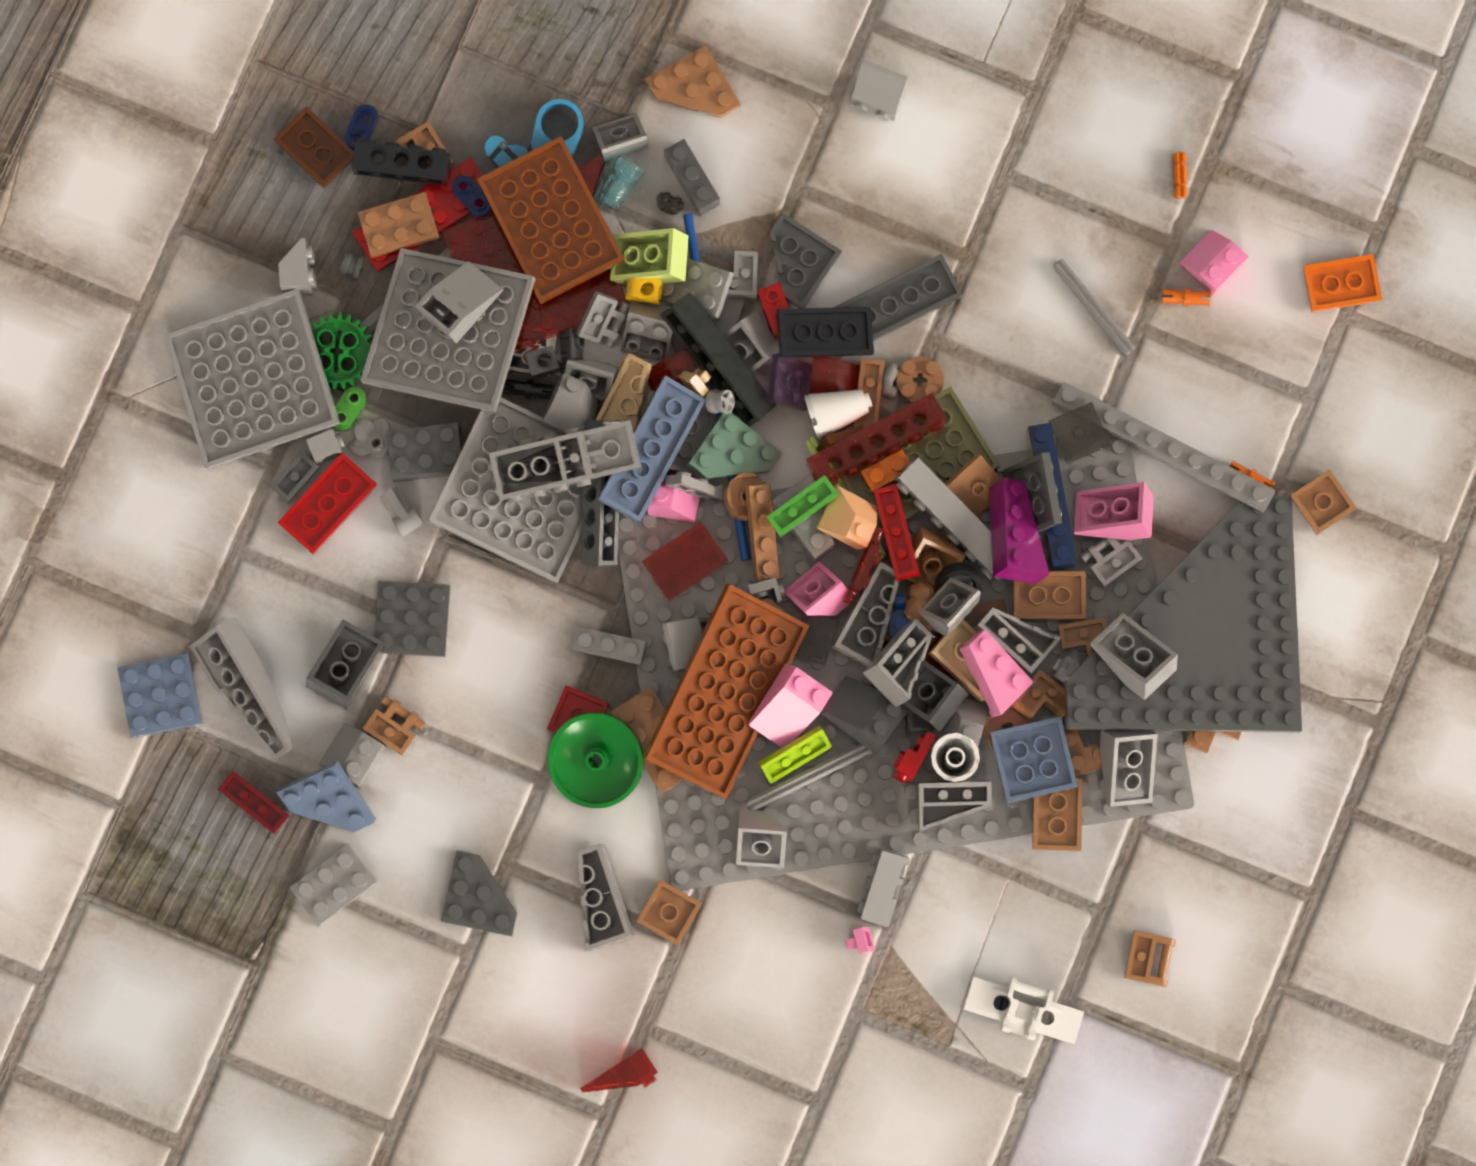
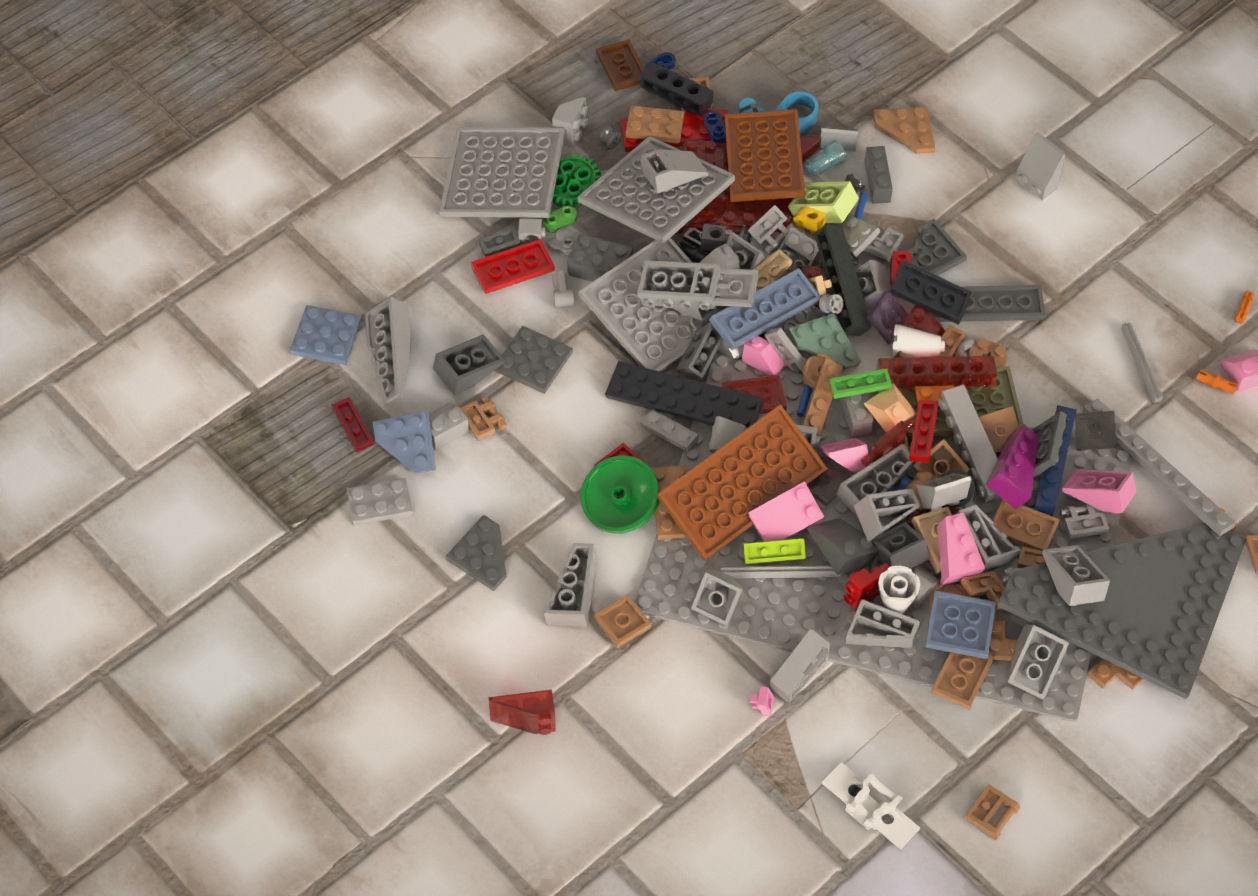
camera: 25 degrees right, 25 degrees down
(608, 600) = (681, 396): none -> black plate

